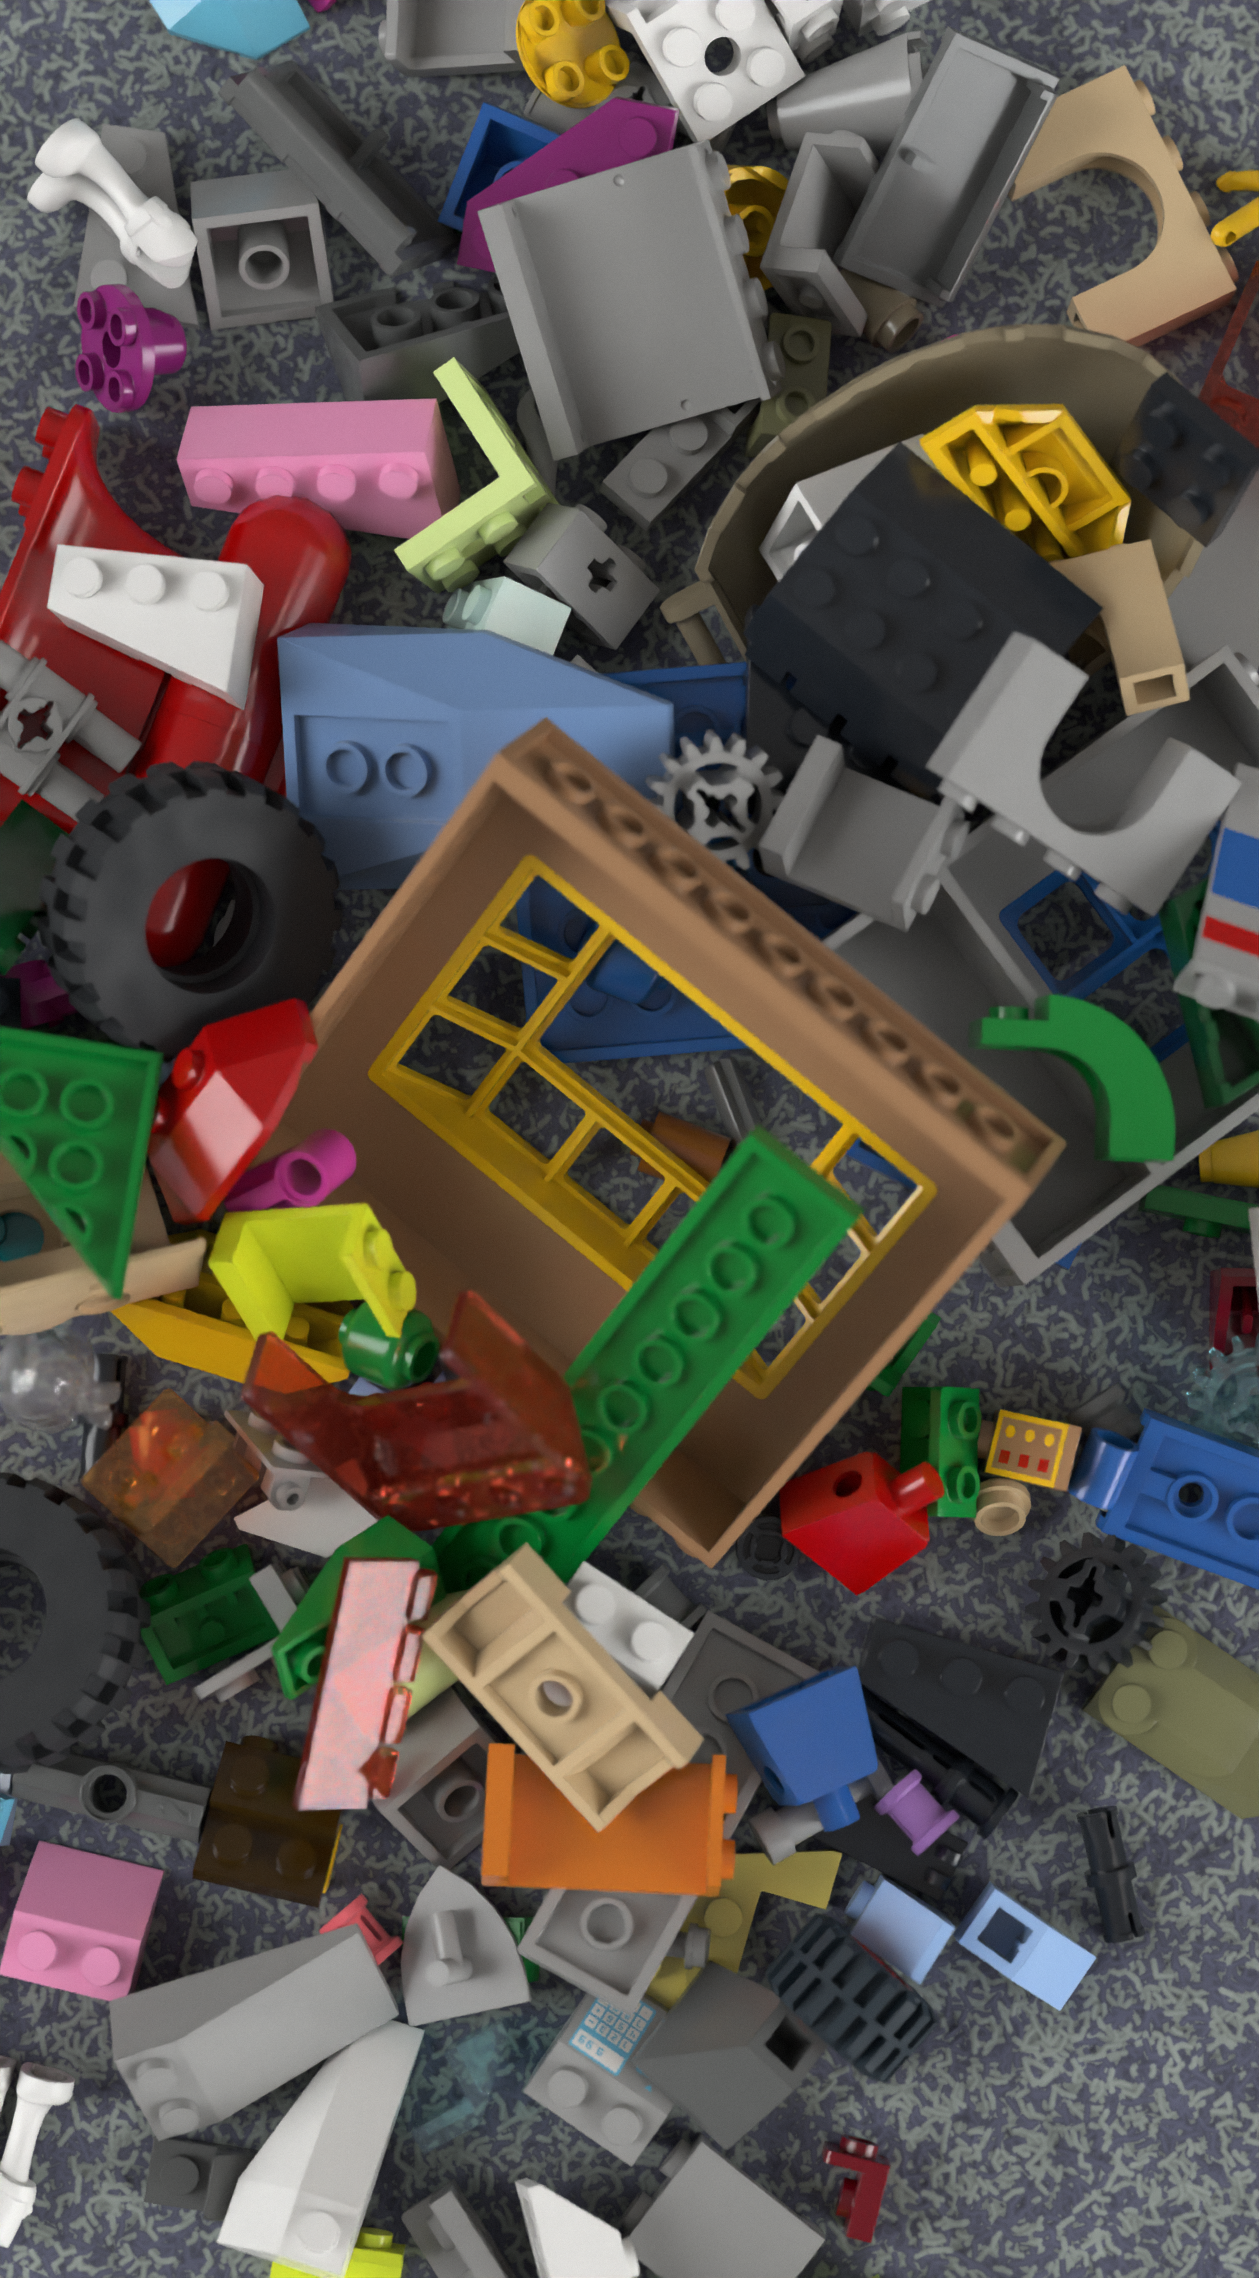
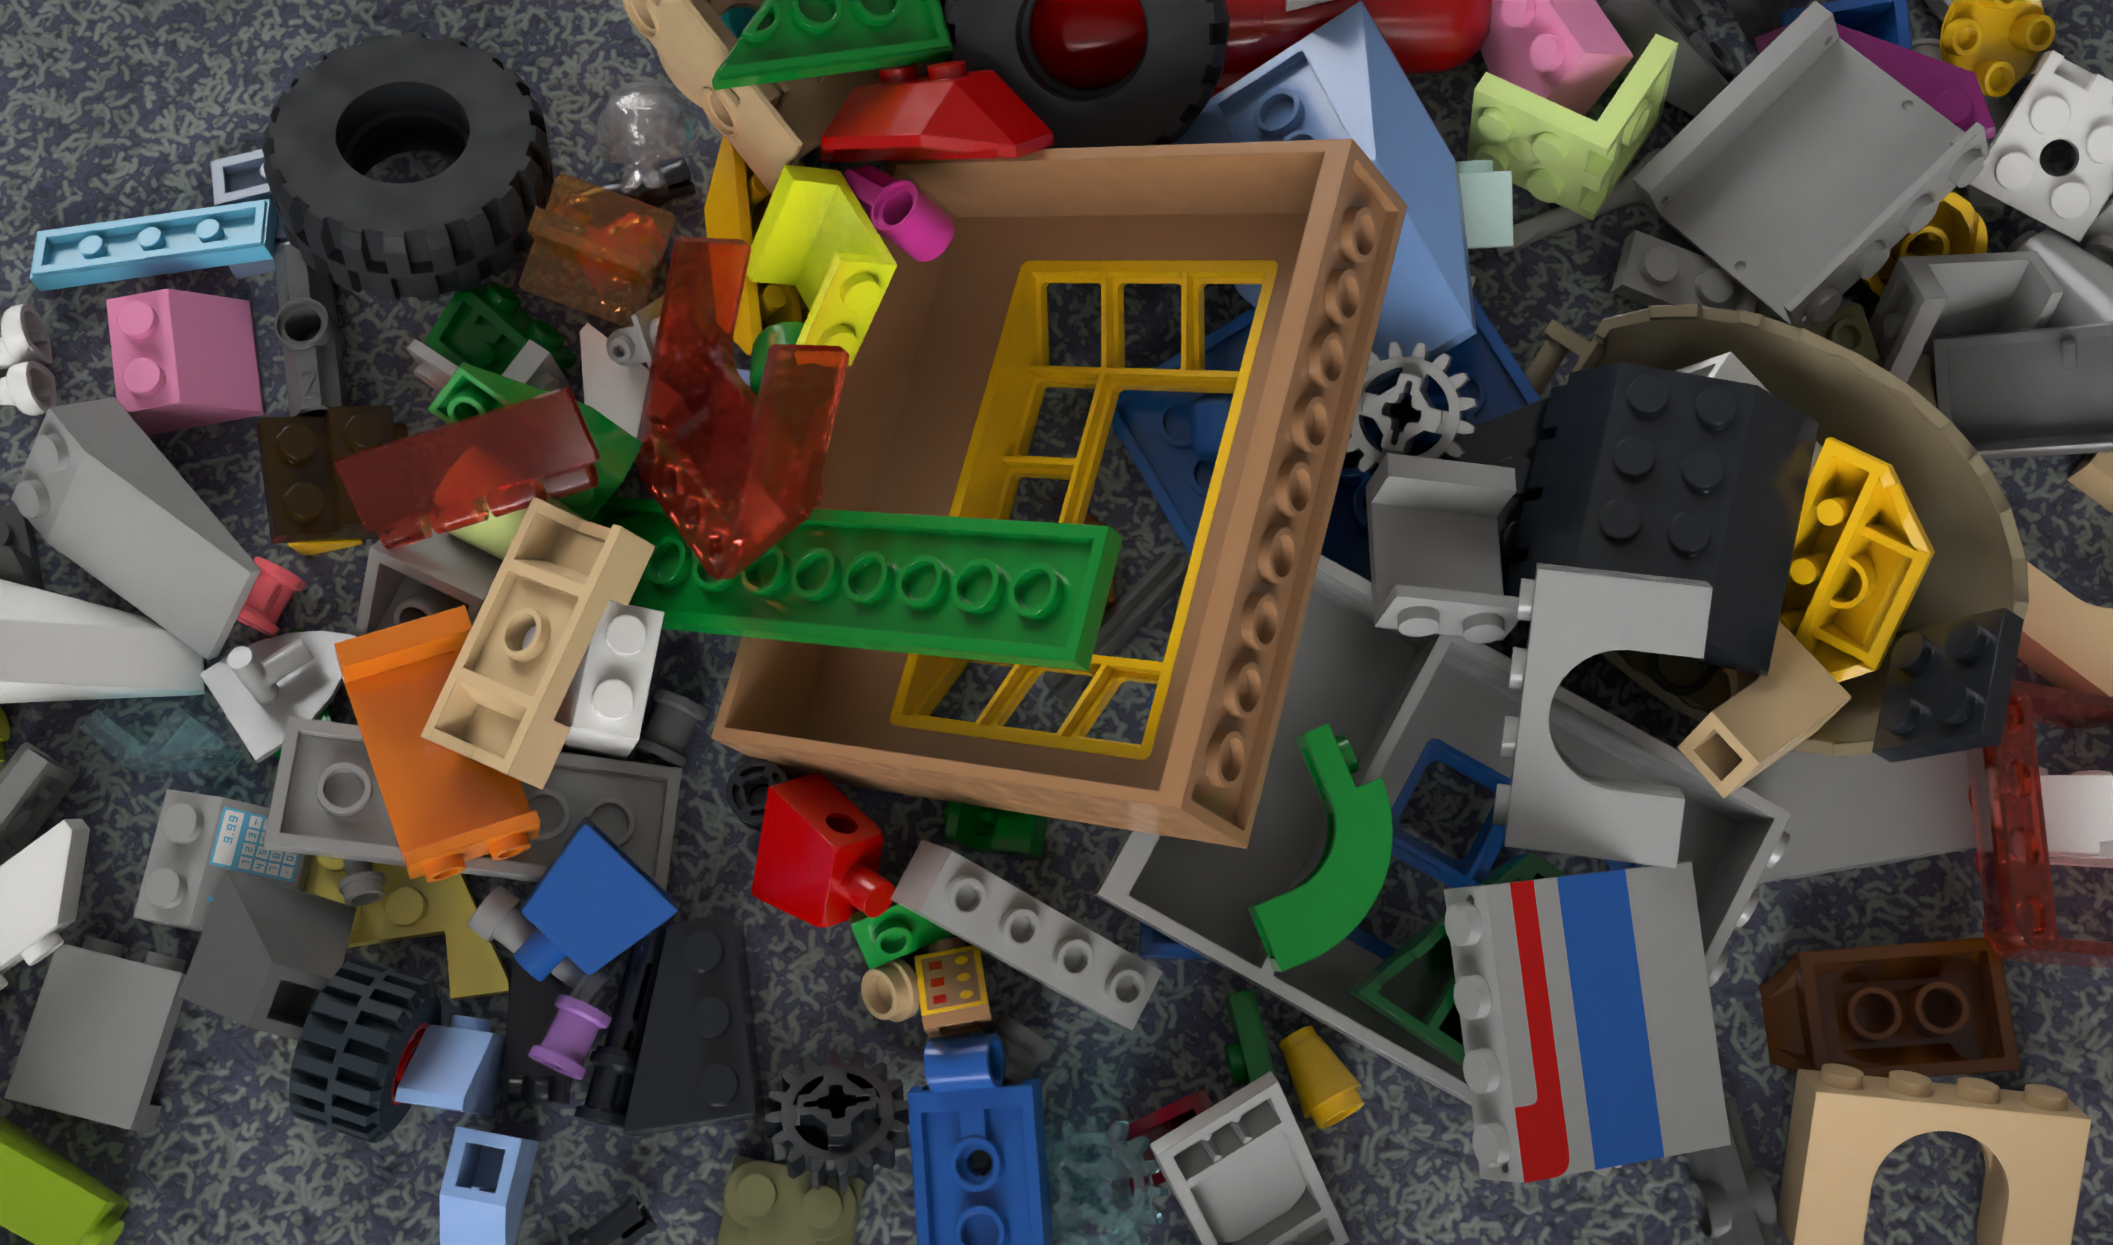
camera: 65 degrees right, 10 degrees down
(581, 567) = (1541, 216): light grey brick -> none
(858, 2197) = (190, 1147): dark red bracket -> none
(1017, 1364) = (1026, 934): none -> light grey brick

